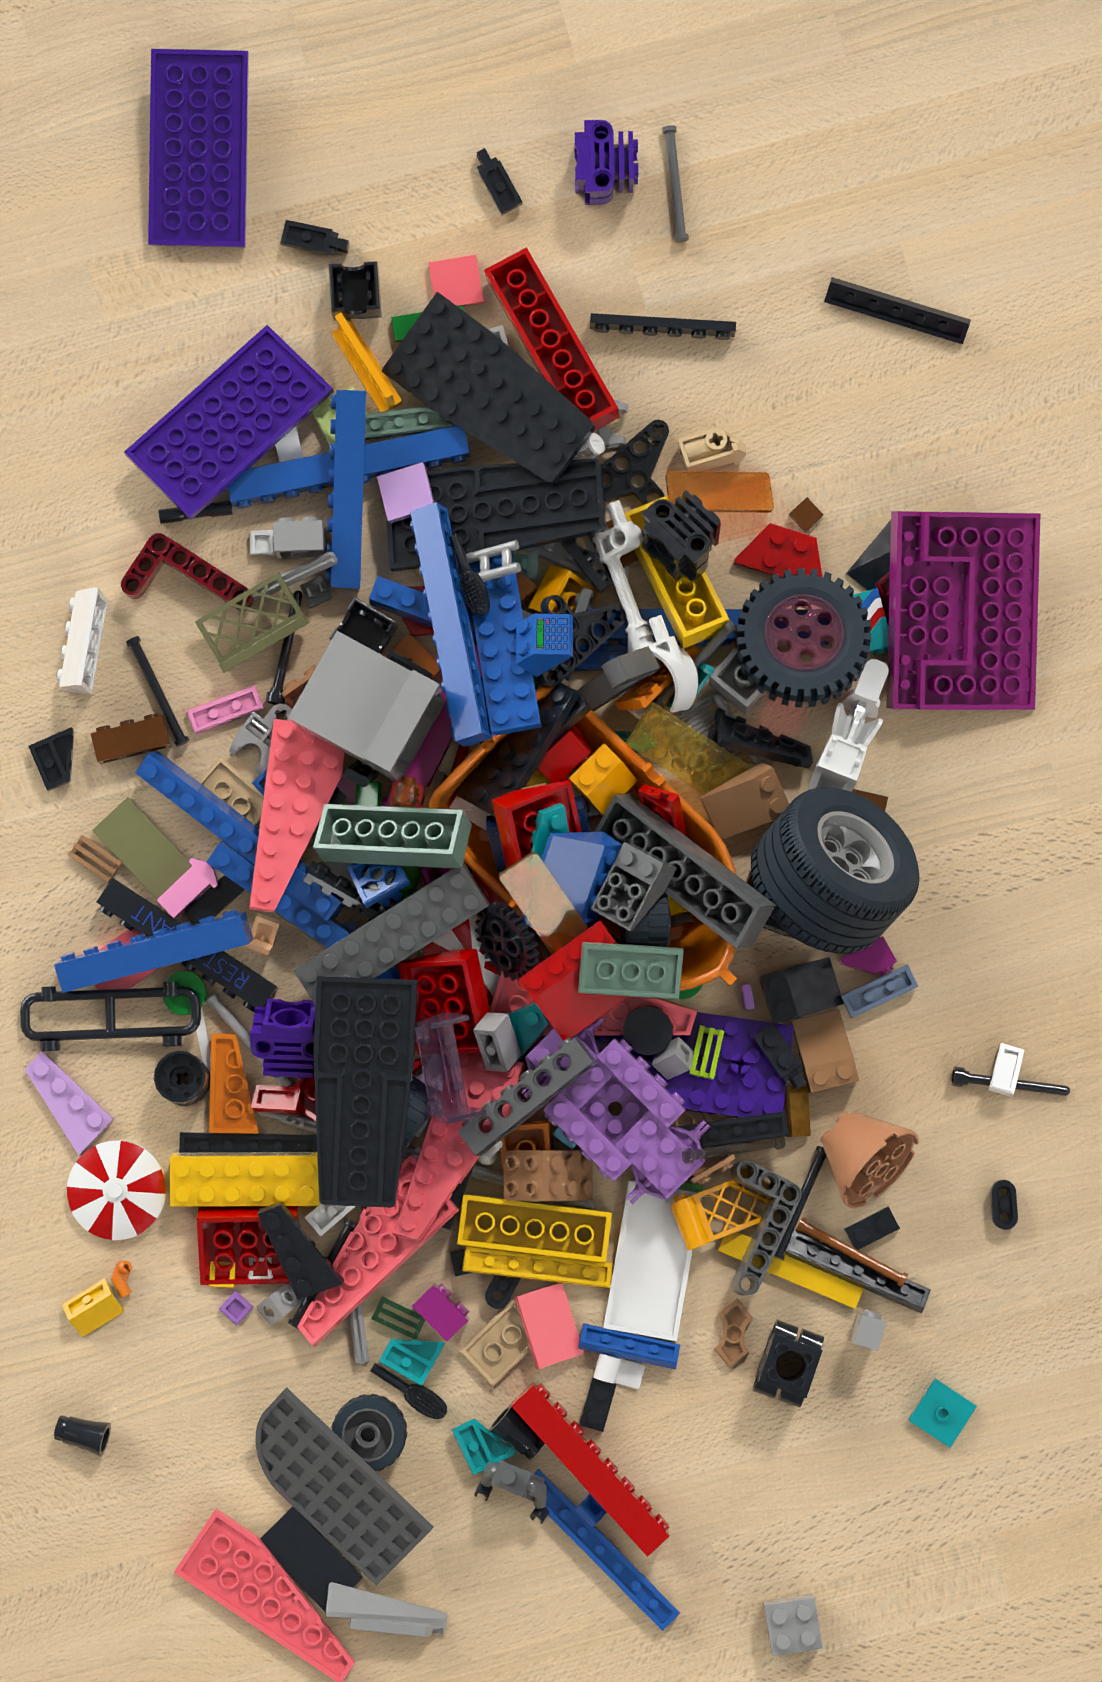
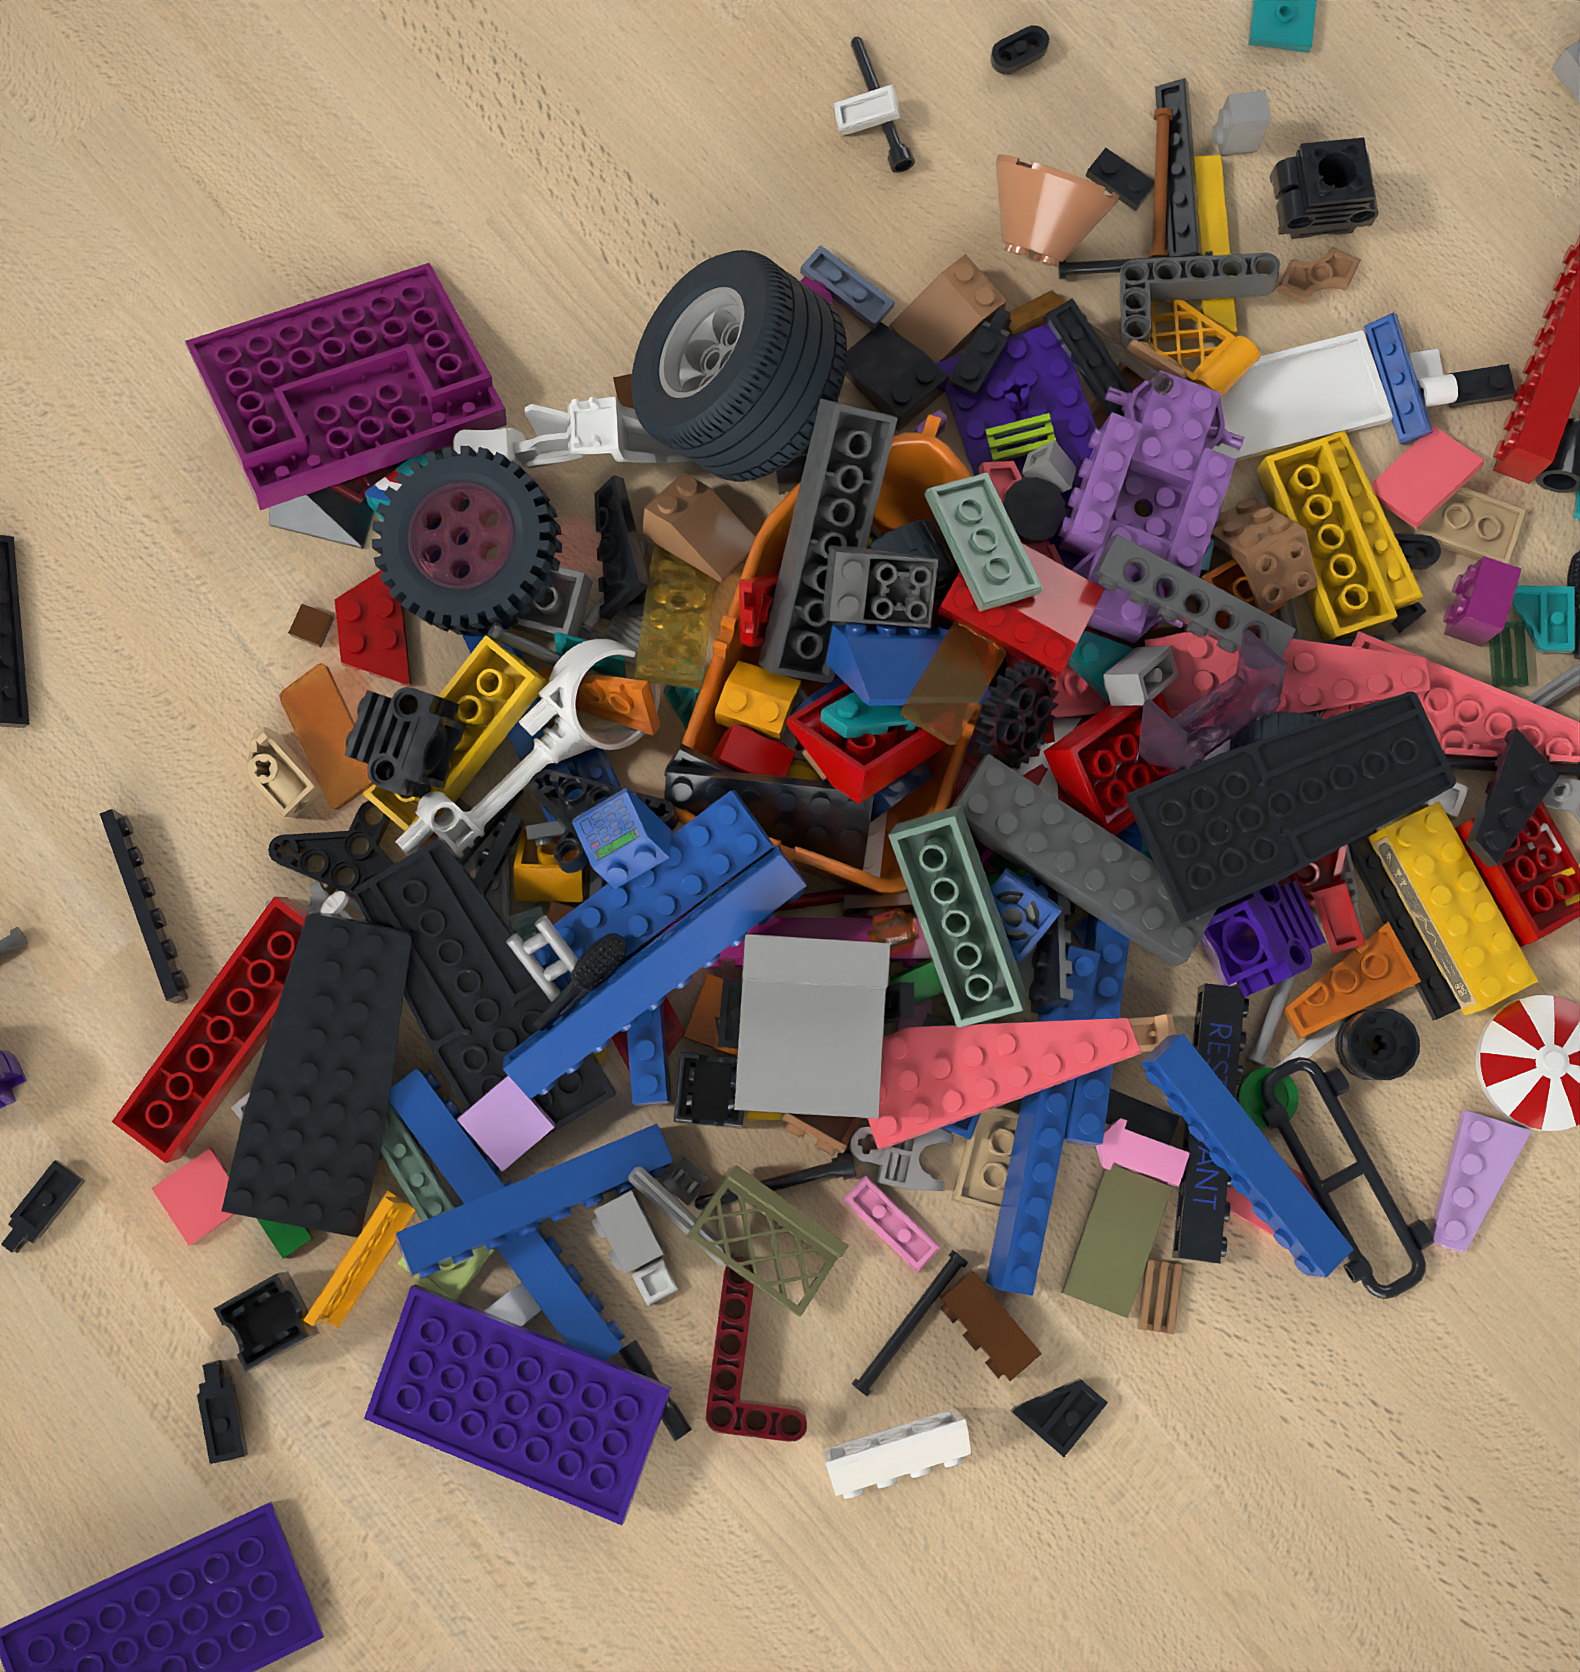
camera: 120 degrees left, 5 degrees down
(619, 676) = (617, 728): dark grey beam -> none

